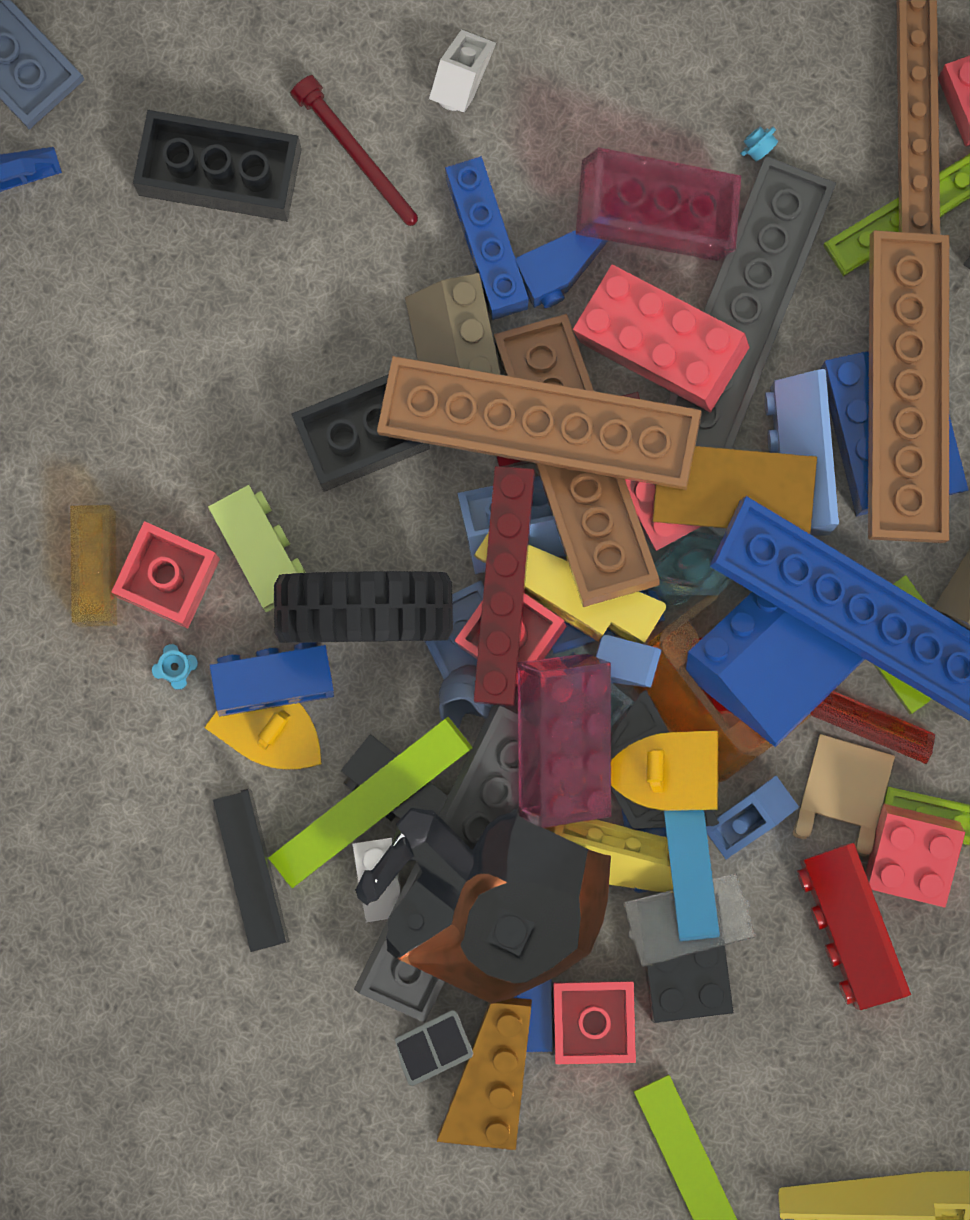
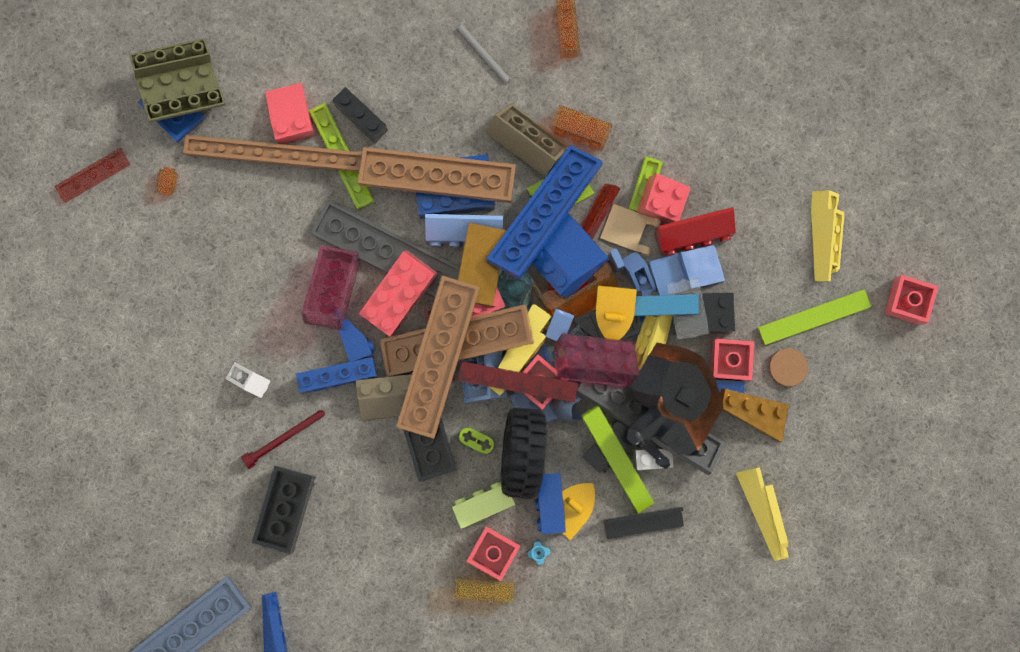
camera: 90 degrees left, 0 degrees up
(294, 1117) = (766, 511): none -> light yellow wedge
(375, 520) = (479, 436): none -> lime beam
(433, 1048) = (738, 439): black sticker -> none
(592, 1144) = (788, 367): none -> medium nougat tile
(759, 143) = (303, 235): medium azure plate -> none
(768, 884) = (666, 271): none -> medium blue tile
(773, 765) = (615, 261): none -> medium blue tile
(784, 948) = (702, 264): none -> medium blue tile

